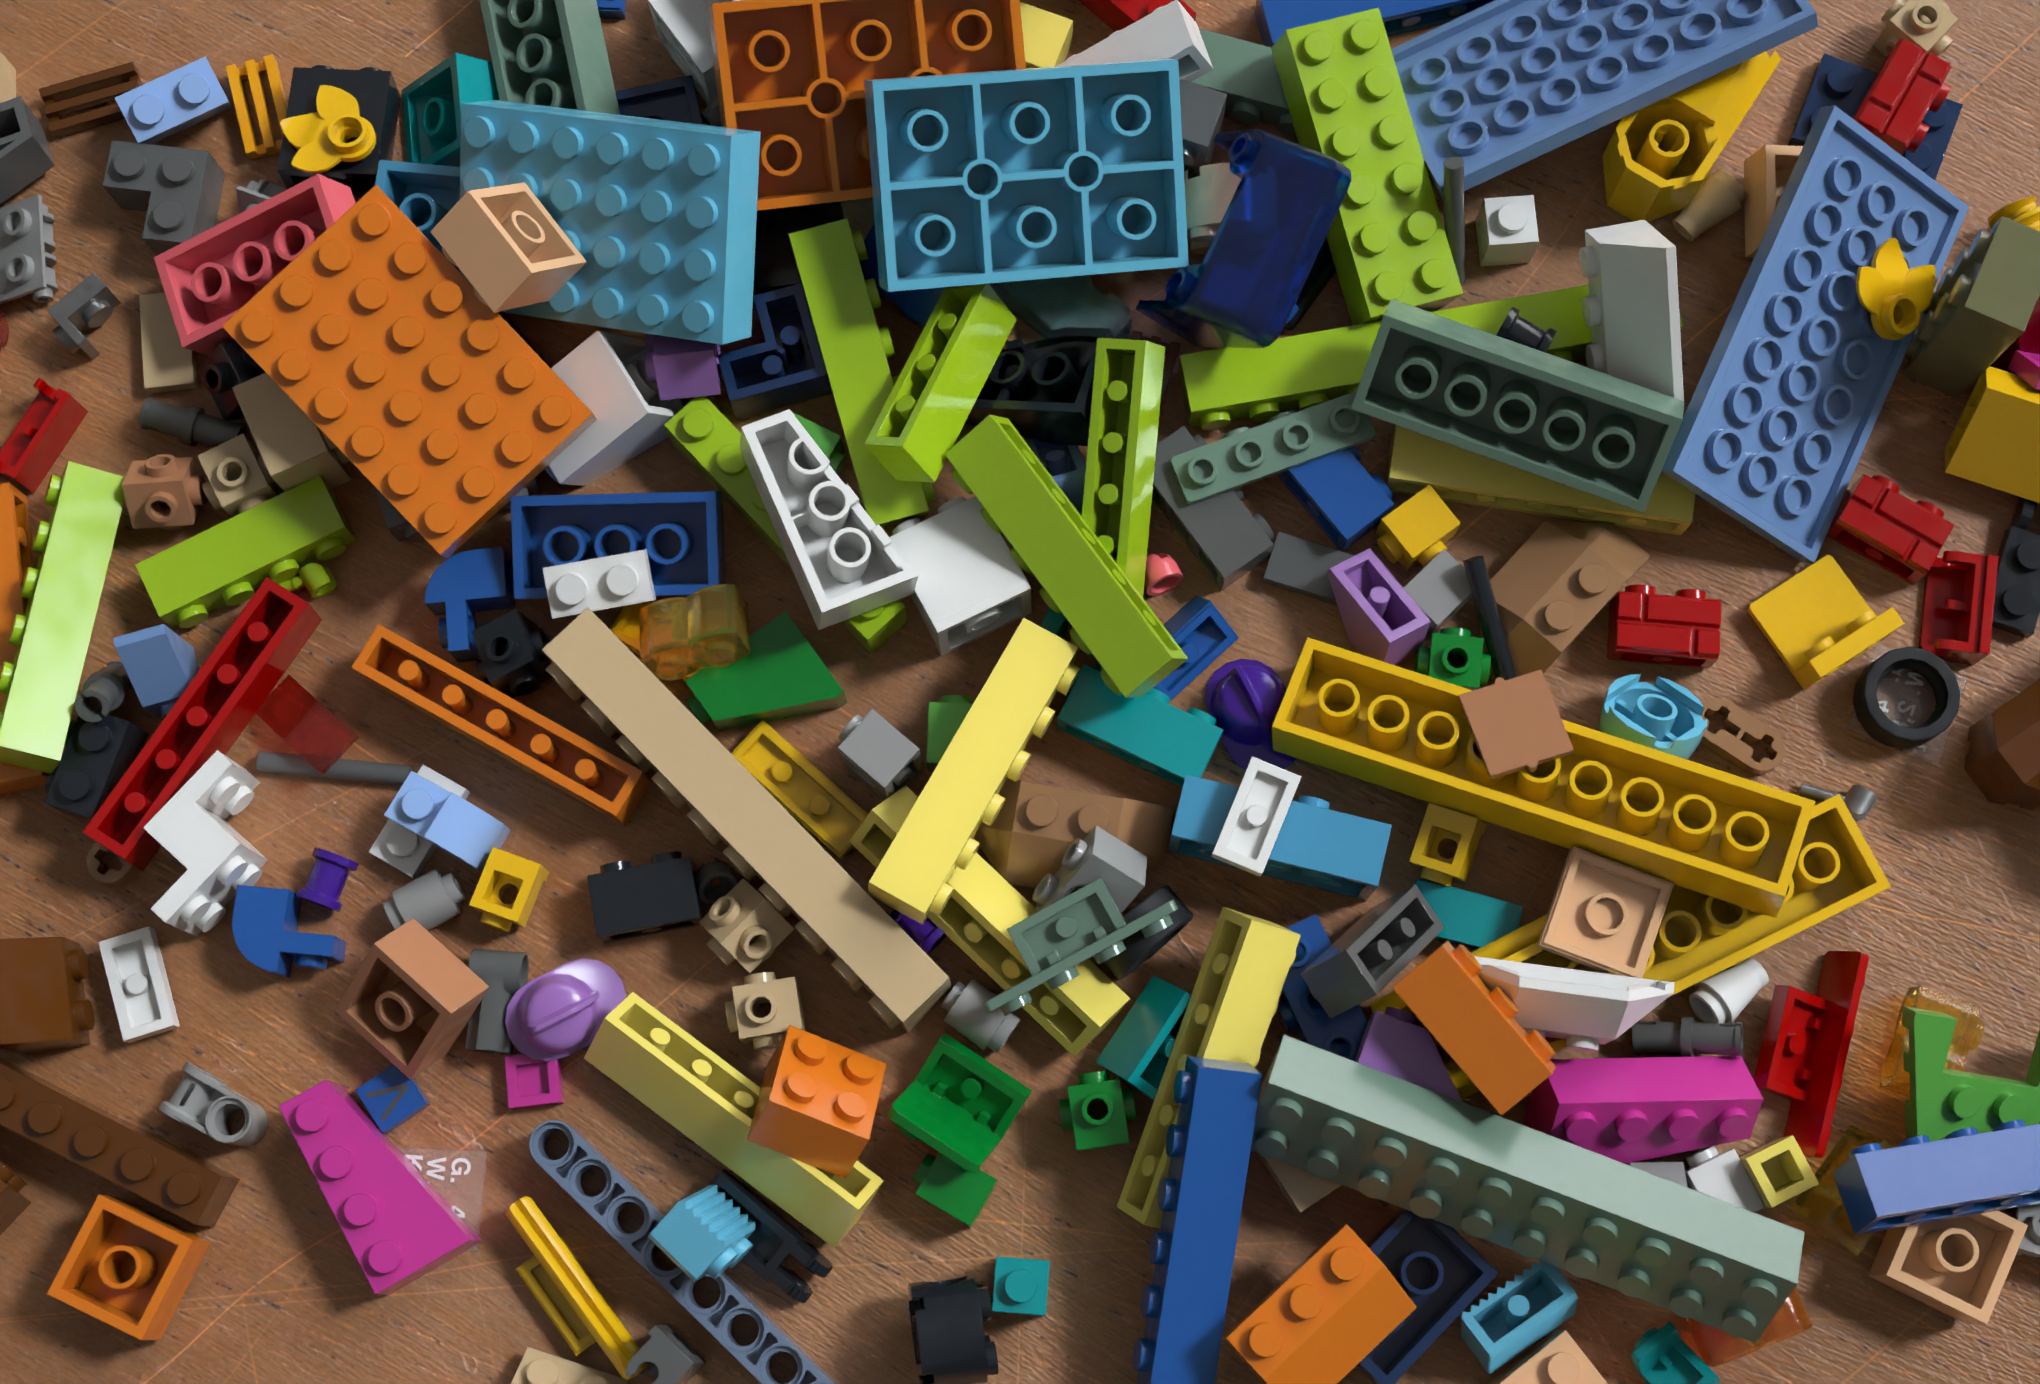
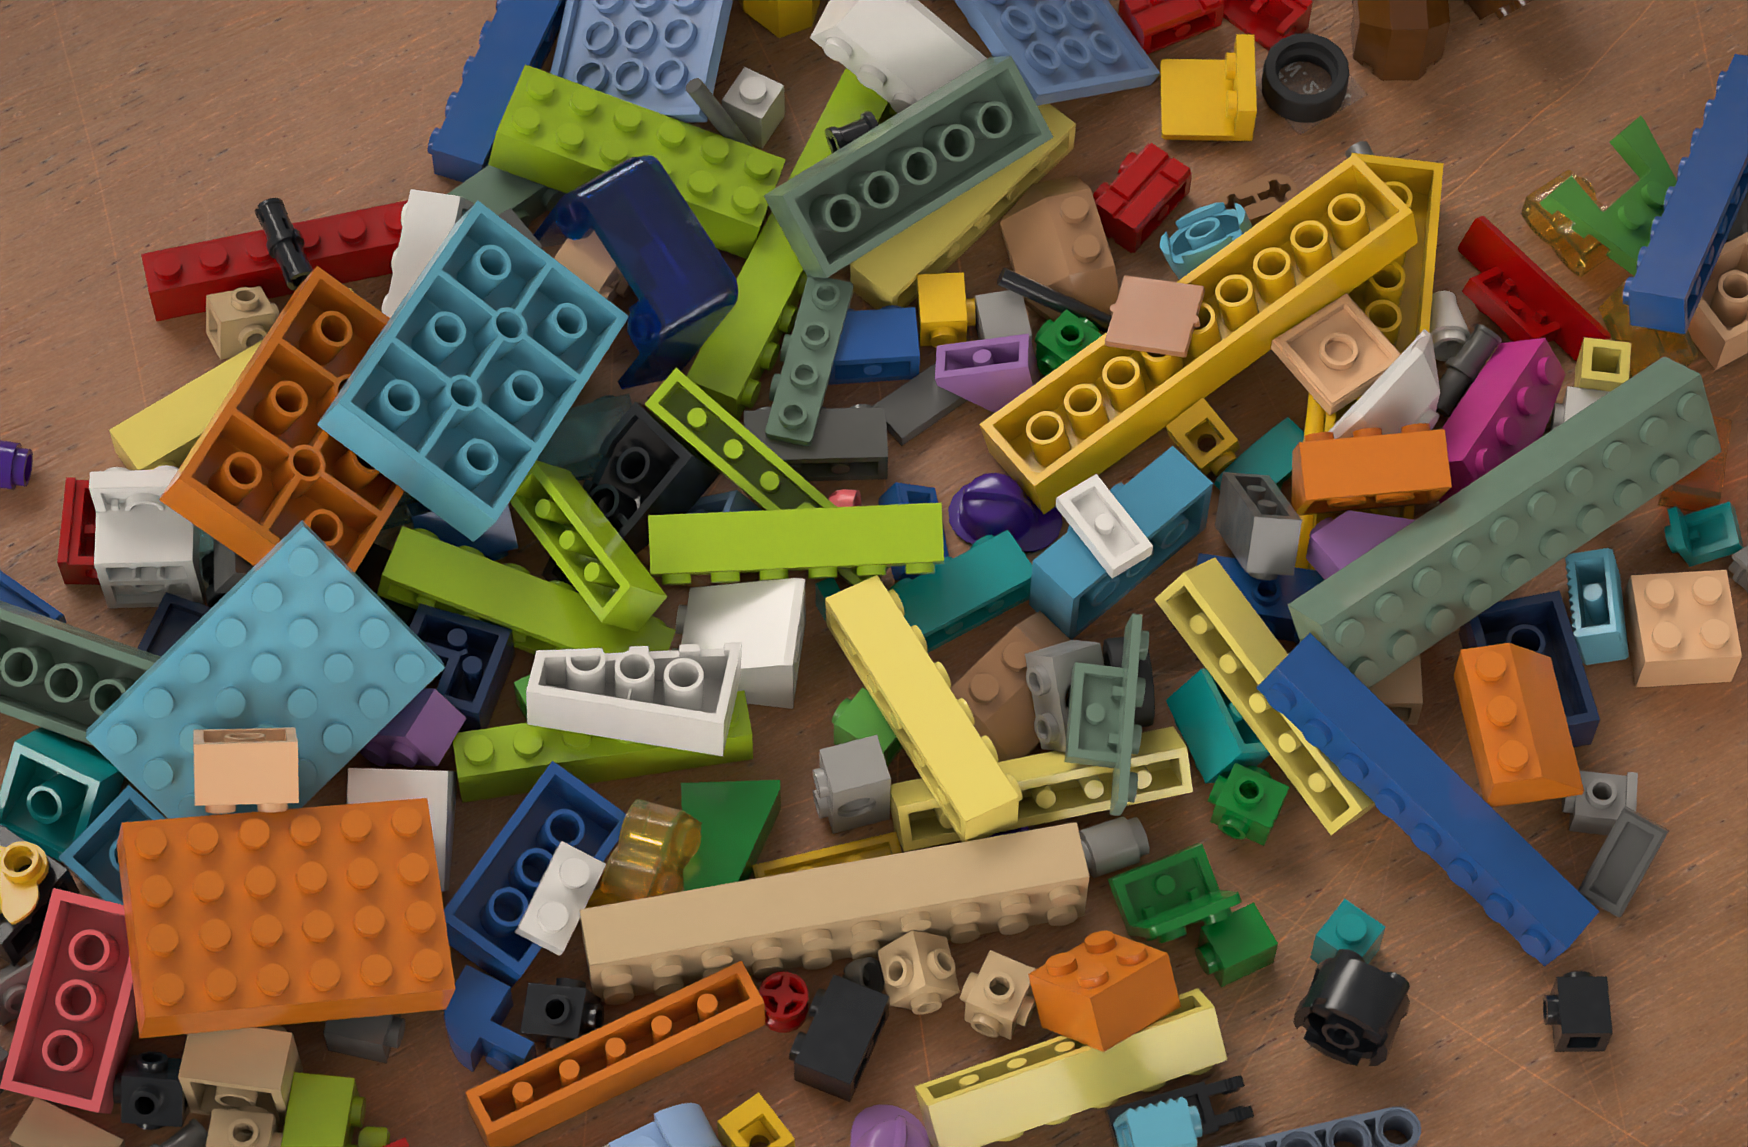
camera: 60 degrees left, 15 degrees down
(646, 819) = (783, 990): none -> red wheel

